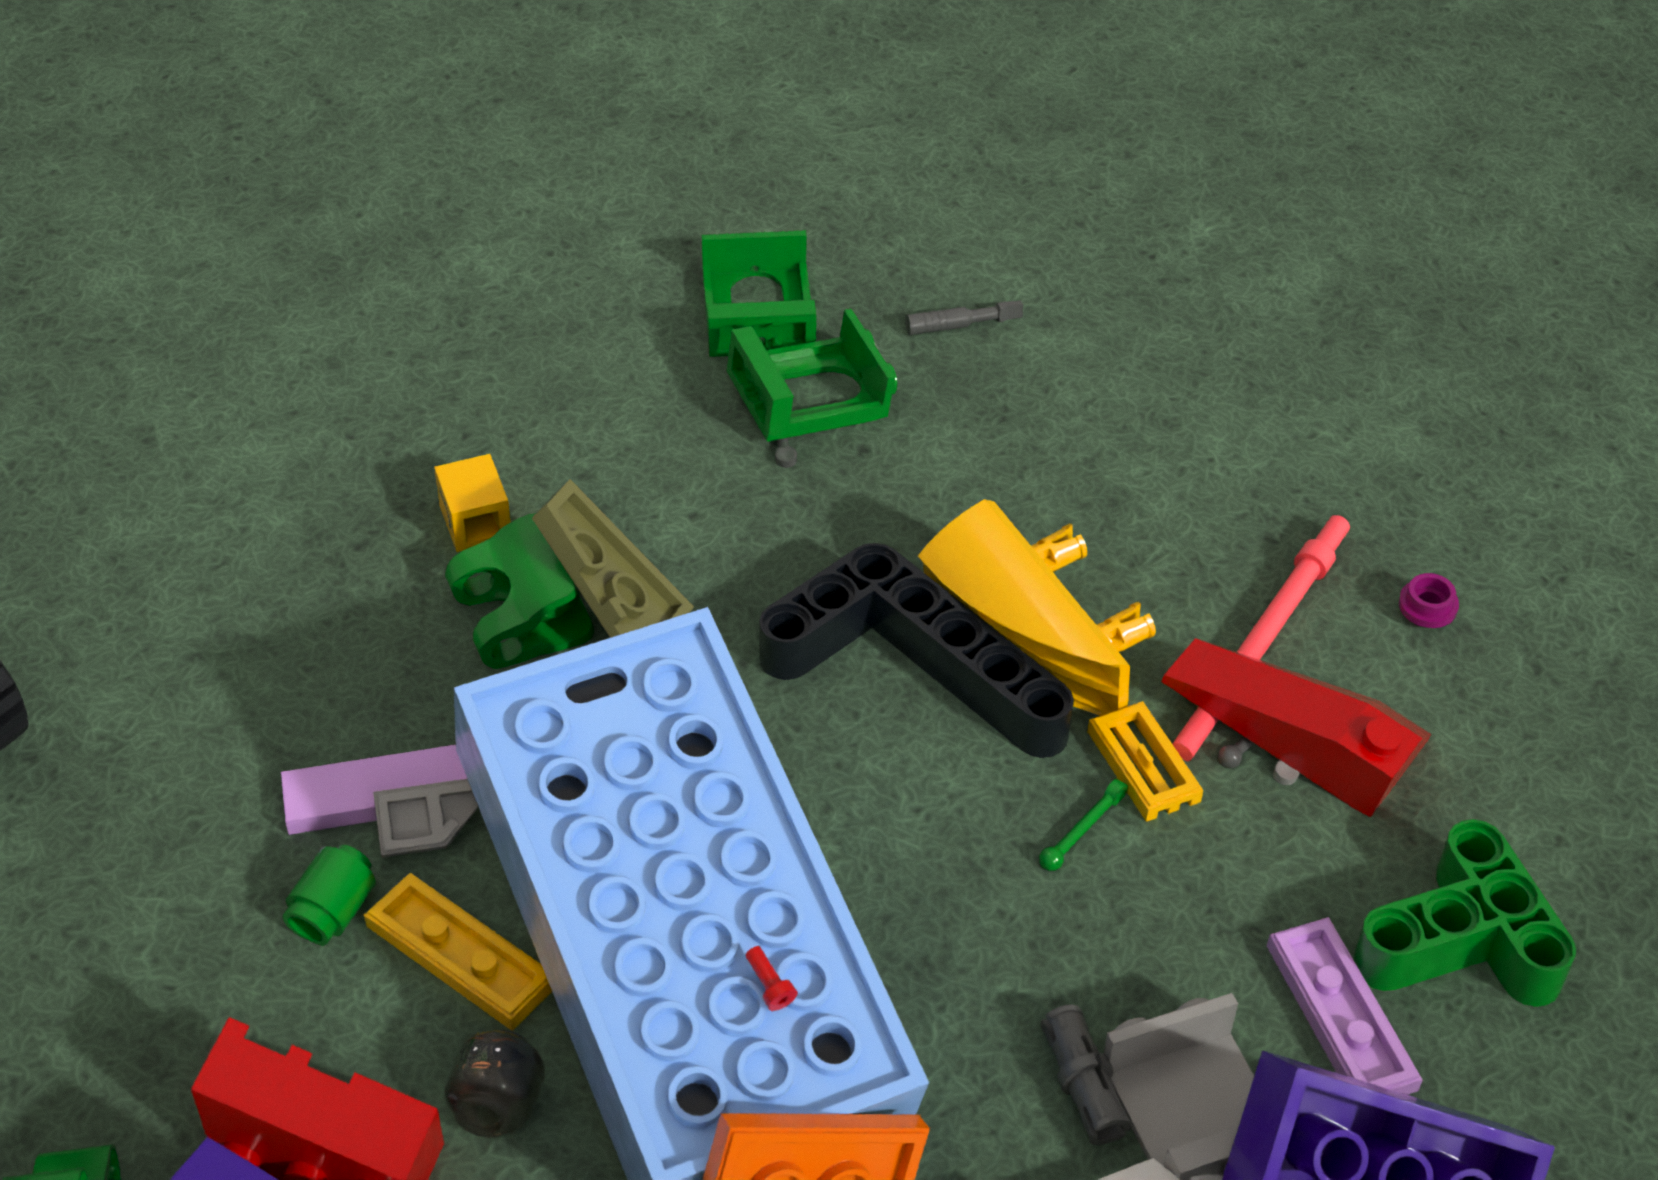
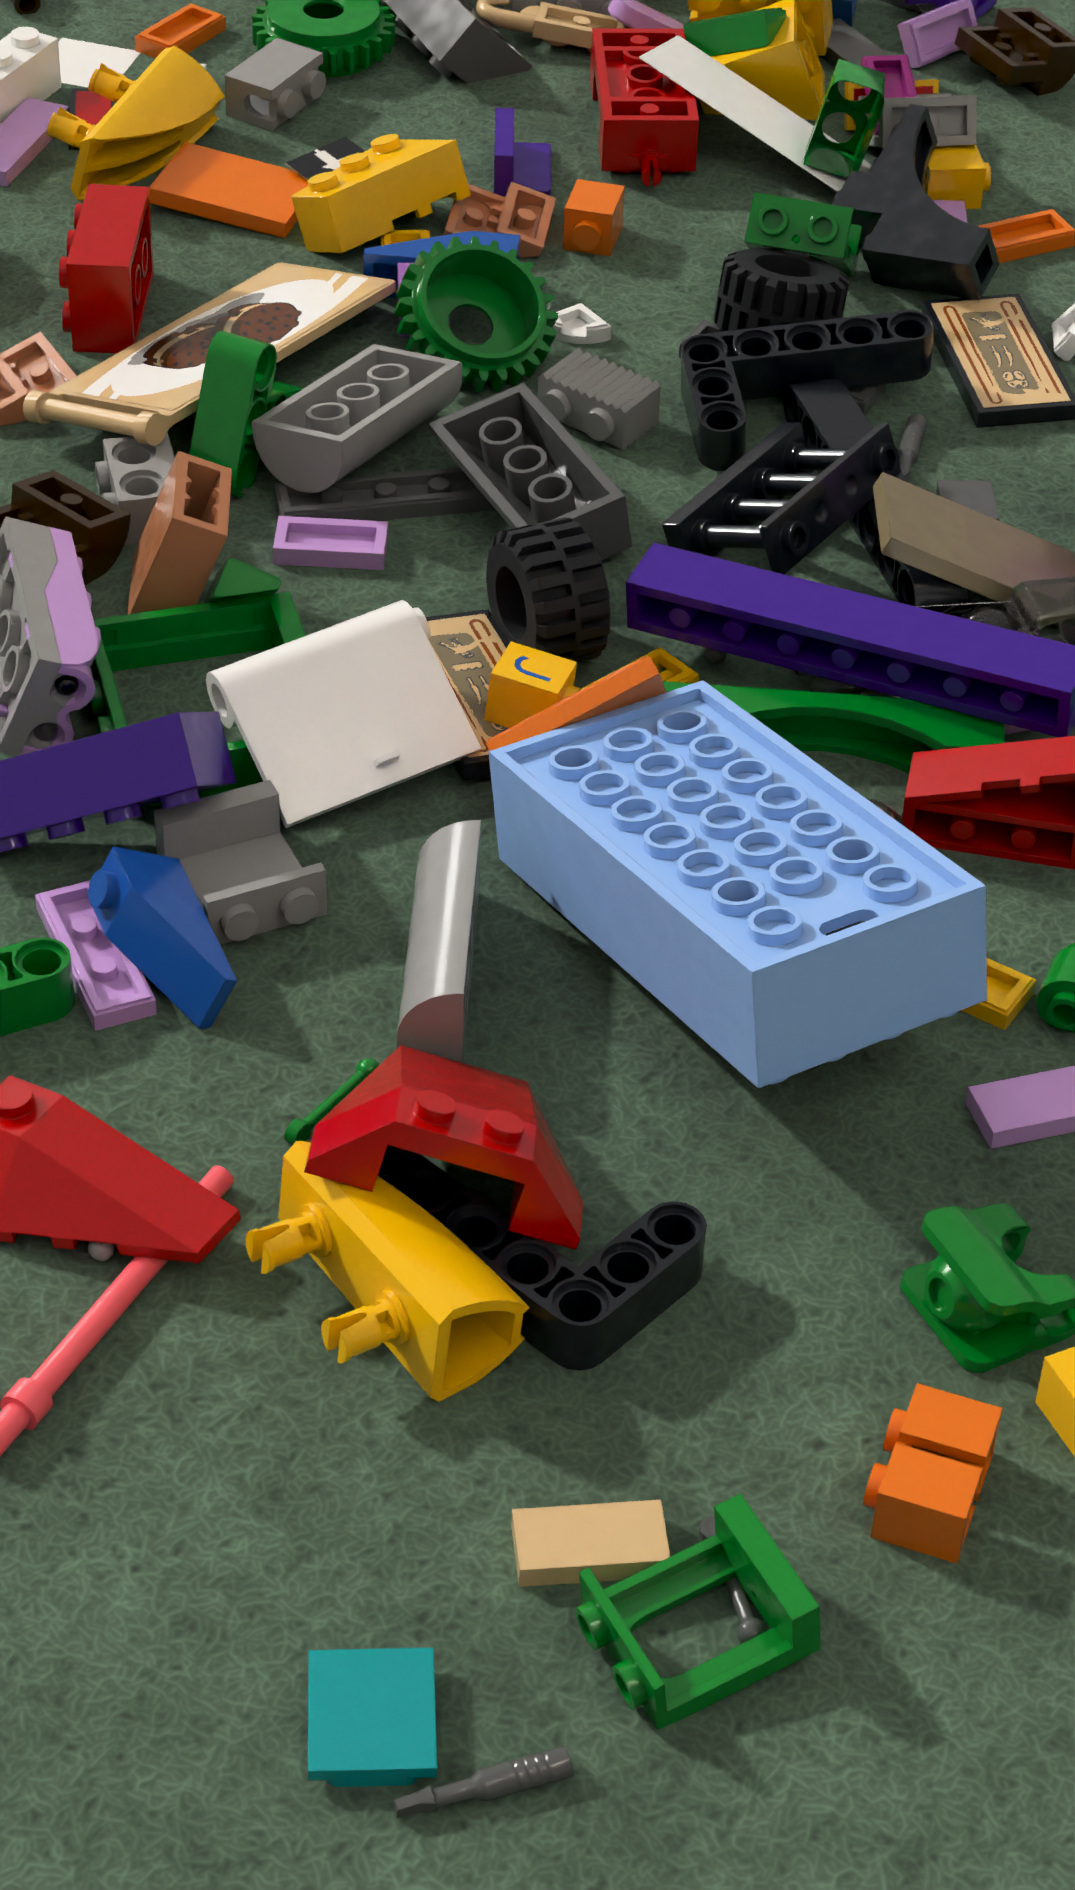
camera: 175 degrees right, 5 degrees down
(422, 816) = (1010, 1060): light grey tile -> none
(605, 565) = (885, 1253): olive wing -> none
(622, 463) = (933, 1473): none -> orange piece
(776, 257) = (786, 1703): green panel -> none
(778, 992) = (625, 758): red piece -> none
(879, 447) = (606, 1537): none -> tan tile
(979, 702) = (459, 1118): none -> red wedge
(981, 958) = (441, 942): none -> light grey brick
(1038, 351) = (371, 1716): none -> teal piece
(1085, 1075) = (355, 910): dark grey pin -> none
(1165, 798) = (217, 1138): yellow tile -> none
(1281, 996) = (163, 930): none -> blue slope

